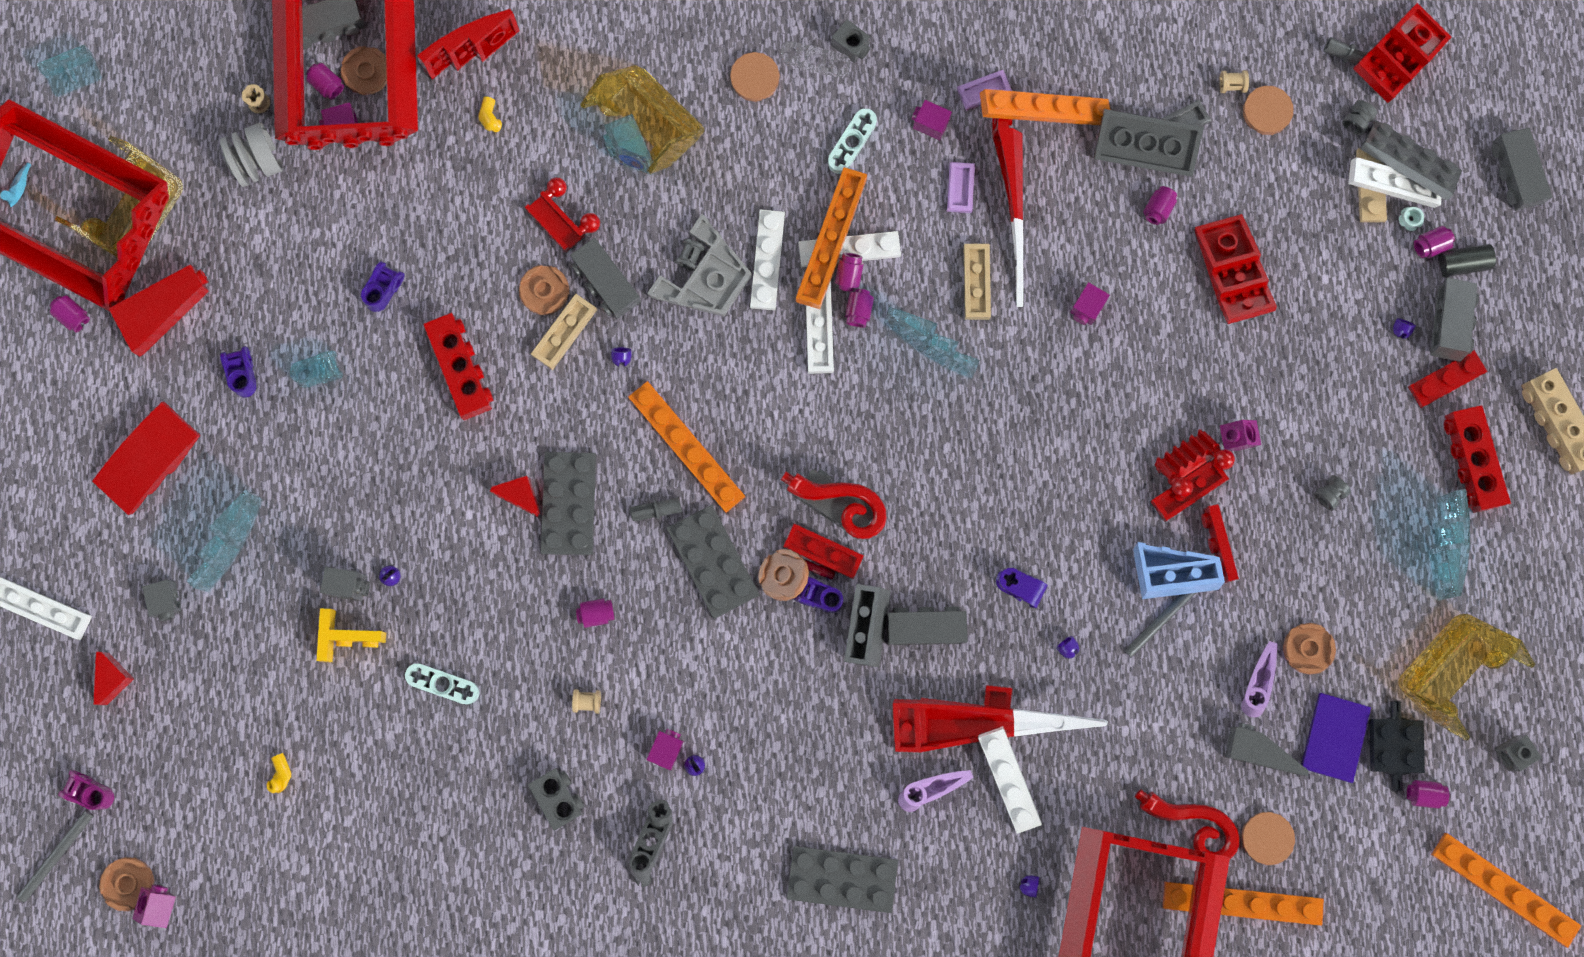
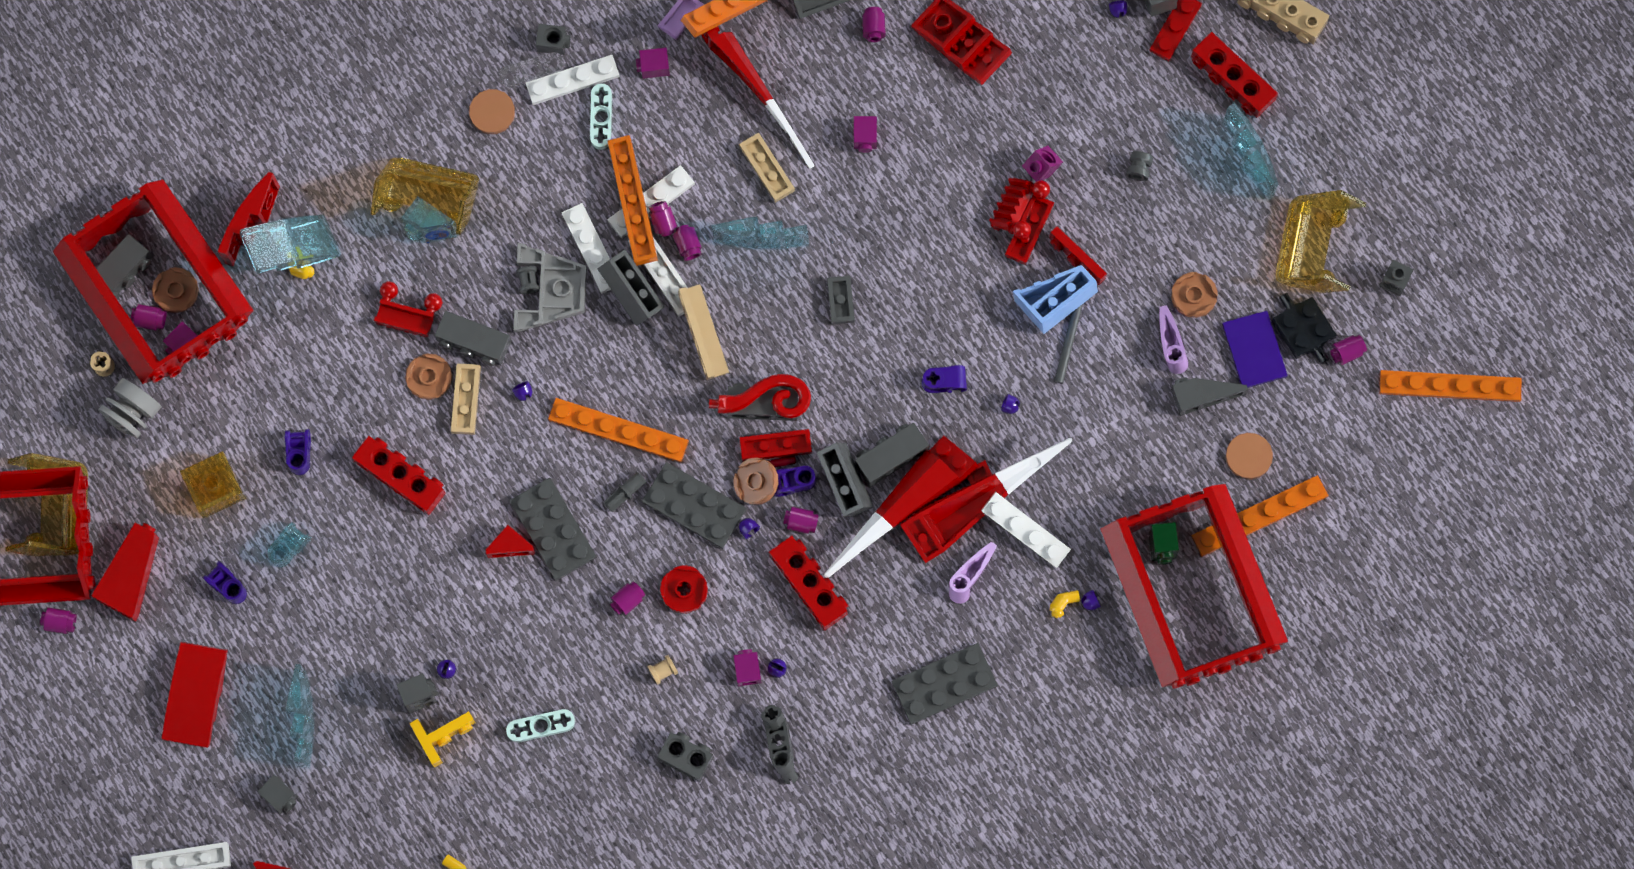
camera: 25 degrees left, 5 degrees down
(283, 272) = (213, 484): none -> clear yellow brick
(490, 88) = (290, 243): none -> clear light blue slope
(639, 639) = (676, 578): none -> red plate
(749, 612) = (746, 526): none -> dark purple hinge
(763, 663) = (825, 615): none -> red brick
(779, 320) = (630, 287): none -> dark grey brick
(803, 638) = (800, 520): none -> magenta brick
(821, 402) = (703, 331): none -> tan fence
(847, 91) = (572, 79): none -> white plate
(948, 673) = (928, 479): none -> red plate
(960, 187) = (708, 102): lavender tile -> none
(969, 449) = (840, 300): none -> dark grey plate
(1002, 868) = (1060, 602): none -> yellow arm
(1134, 877) = (1163, 543): none -> dark green brick
(1162, 810) = (1154, 483): red plant -> none

